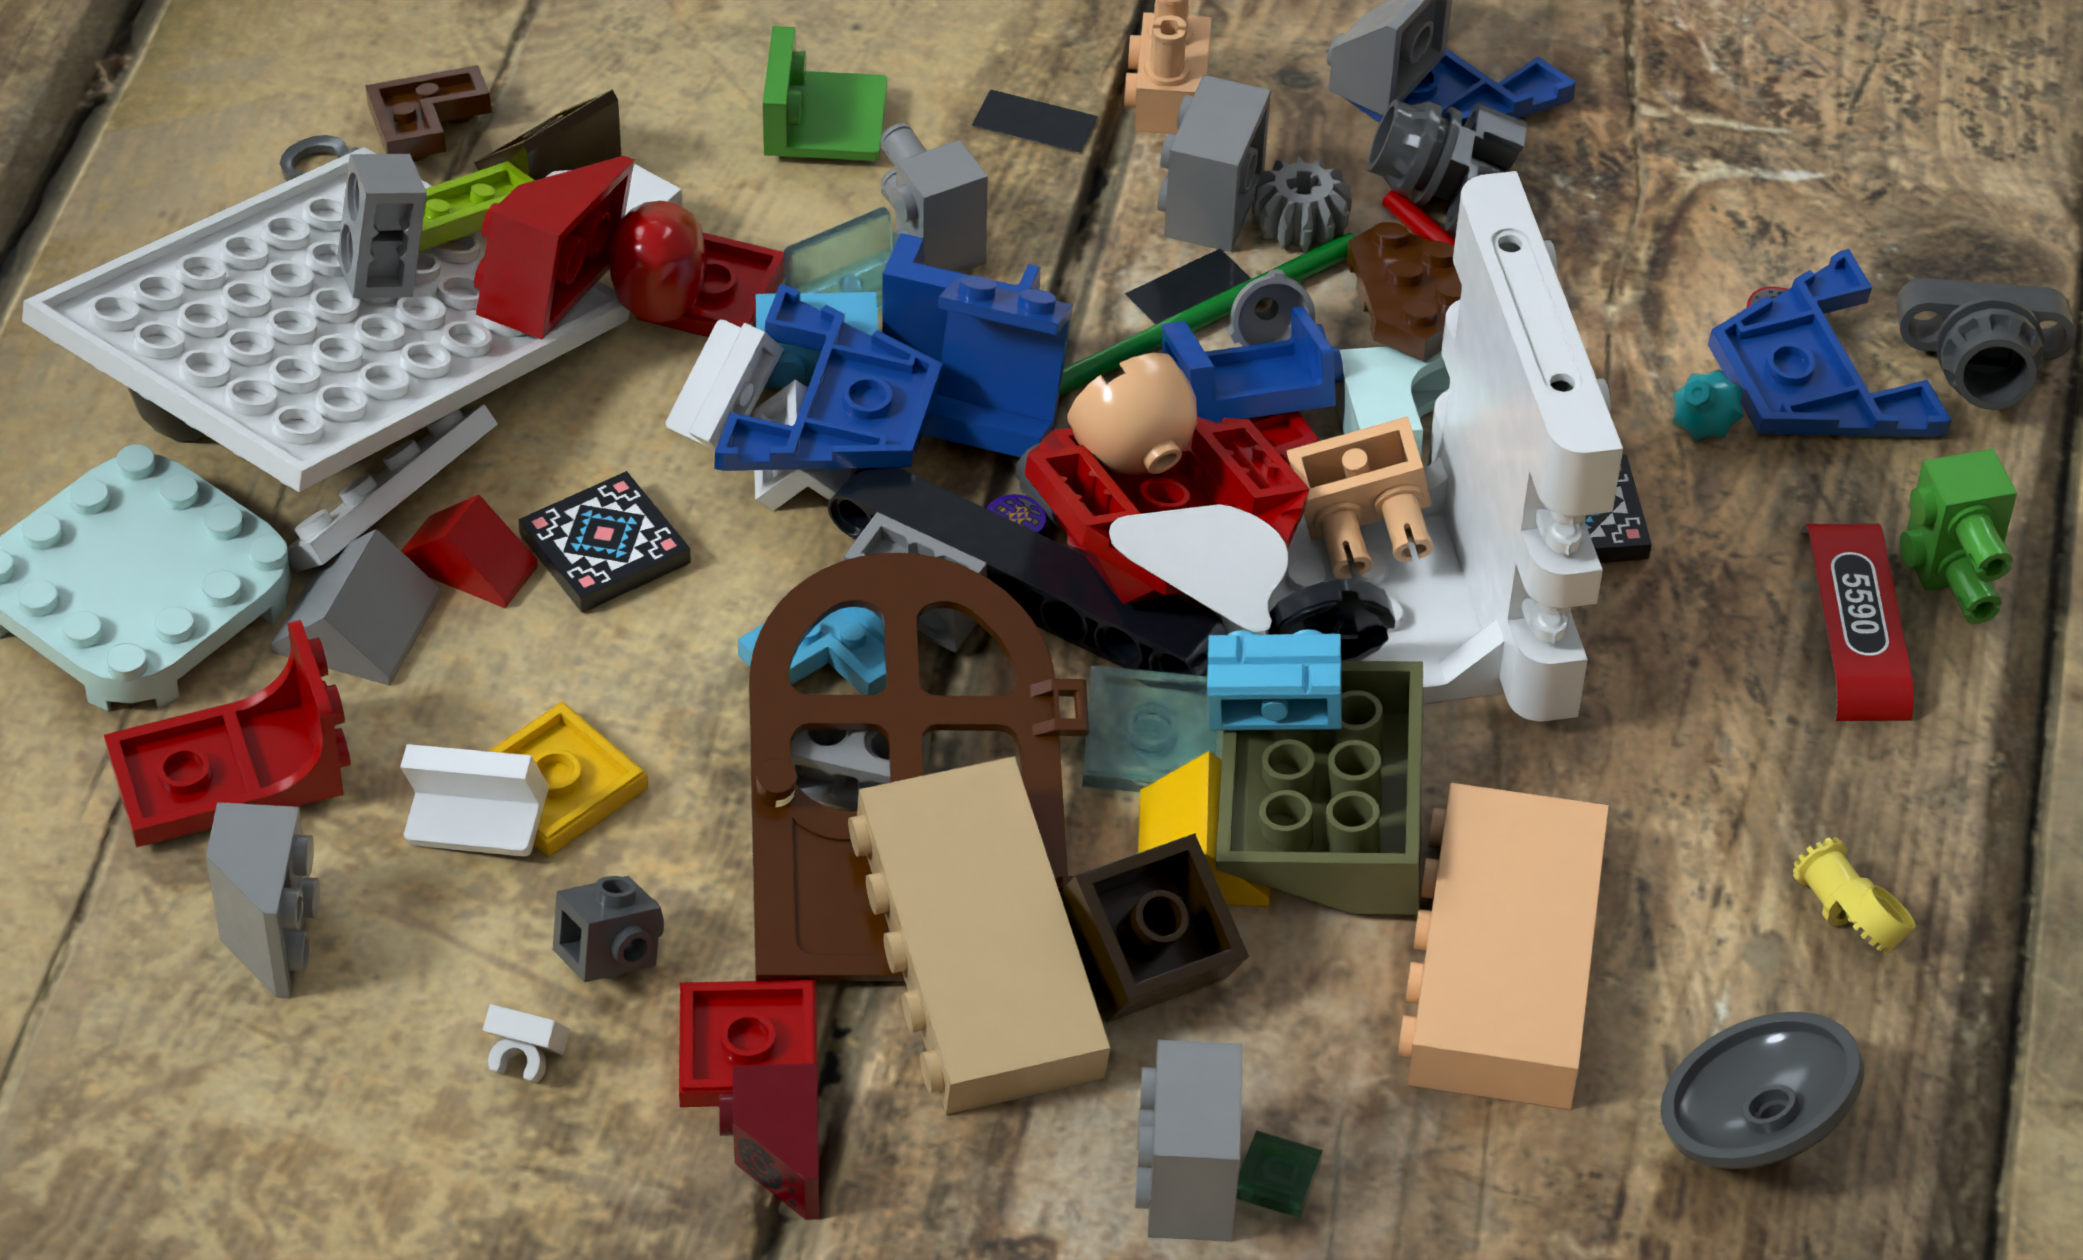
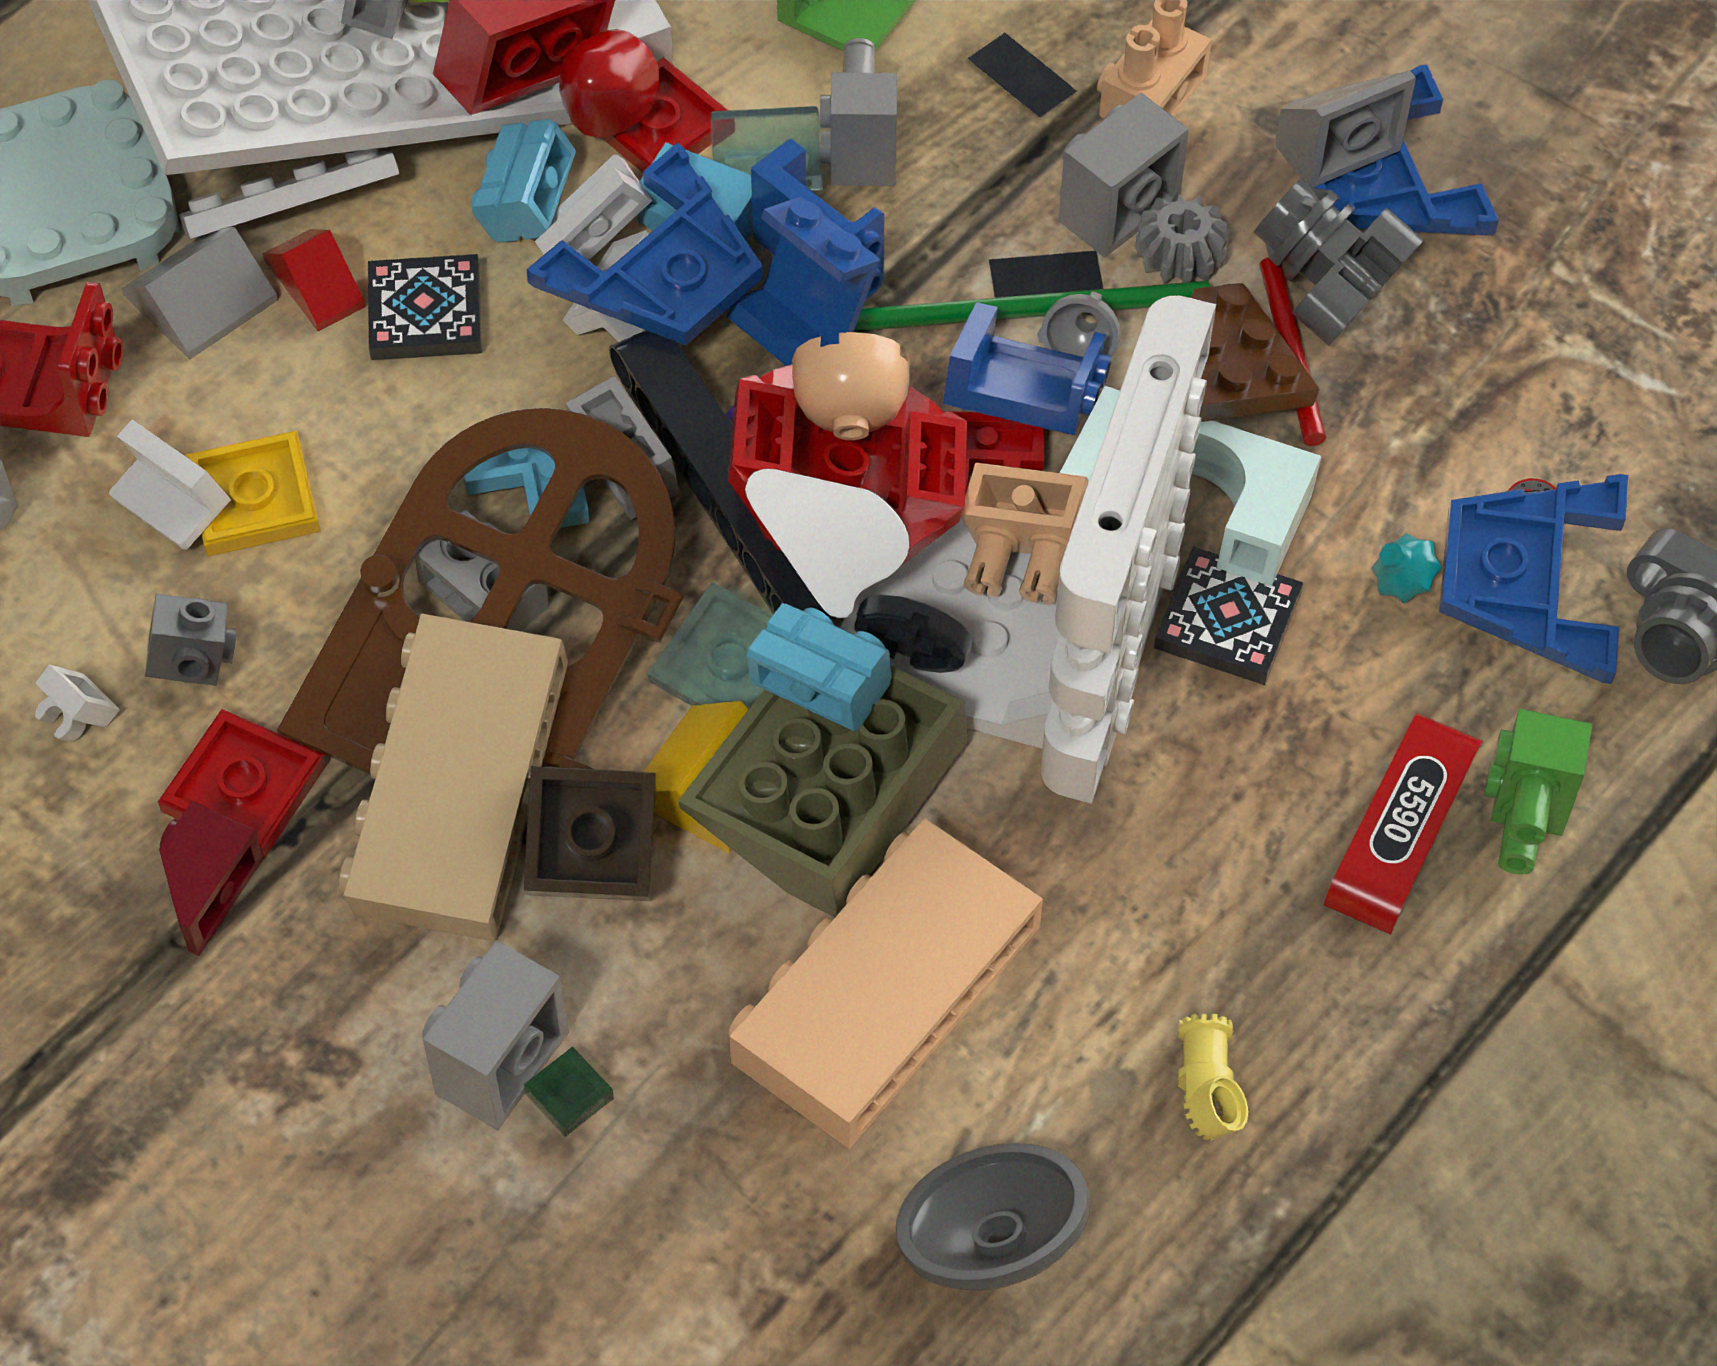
camera: 30 degrees right, 10 degrees up
(628, 385) = (523, 180): none -> medium azure brick

